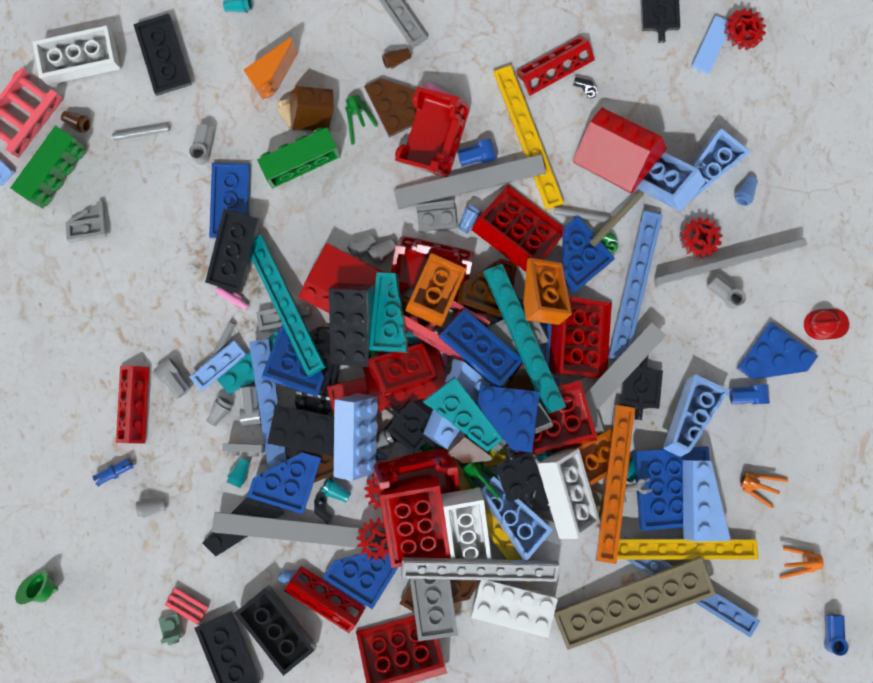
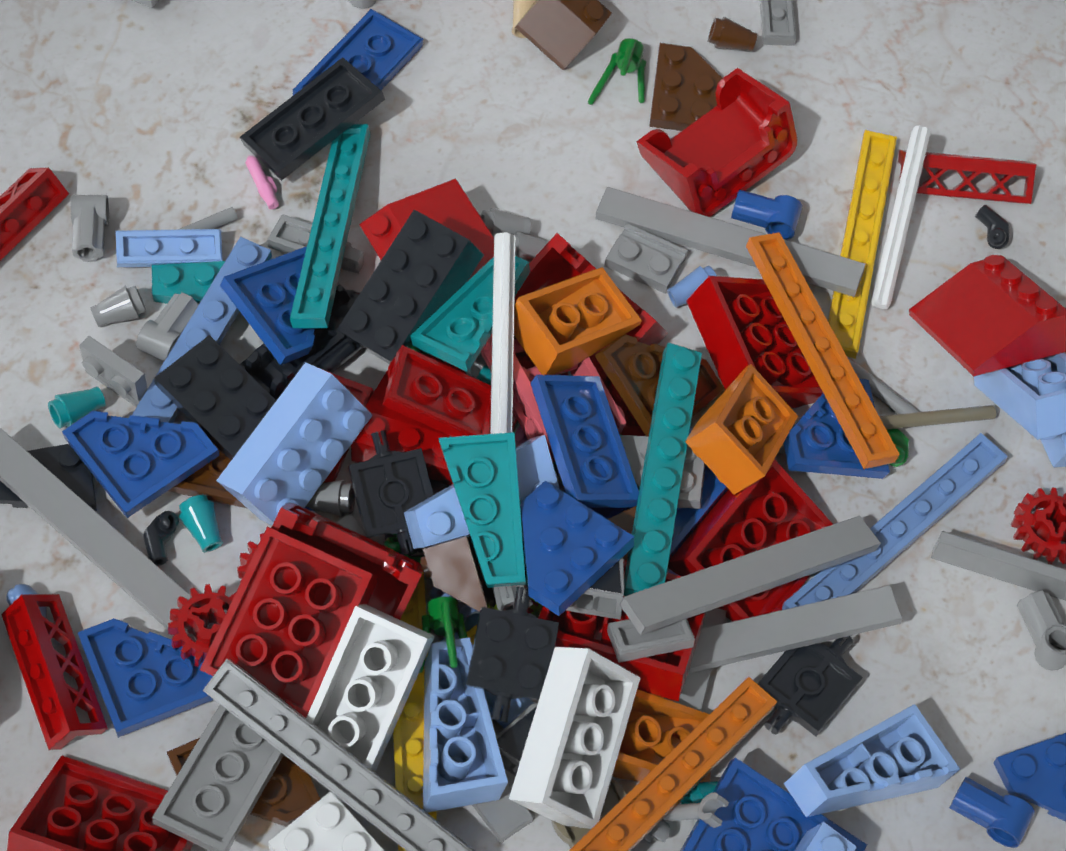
camera: 25 degrees right, 25 degrees down
(298, 157) = (498, 63): green brick -> none
(412, 324) = (503, 333): none -> white axle
(541, 114) = (900, 217): none -> white axle
(550, 219) = (822, 351): none -> orange plate
(571, 427) = (631, 645): none -> light grey tile
(593, 365) = (748, 575): none -> light grey tile

